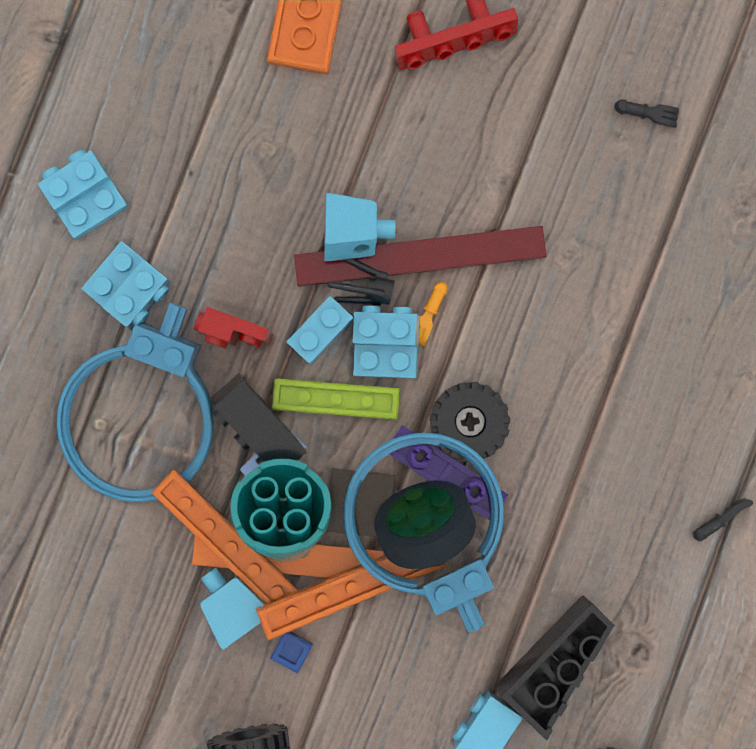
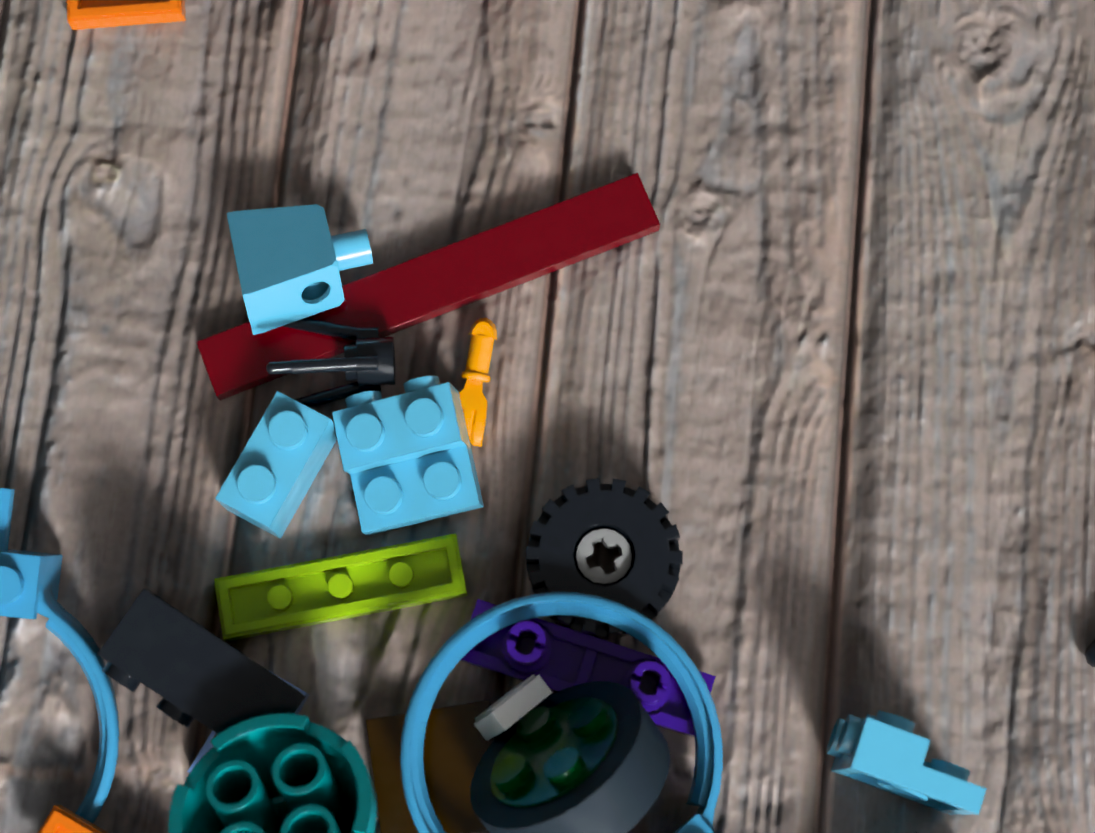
camera: 15 degrees left, 10 degrees down
(225, 329) = (101, 504): red plate -> none
(405, 483) = (512, 706): none -> white tile
(580, 556) = (891, 758): none -> medium azure plate

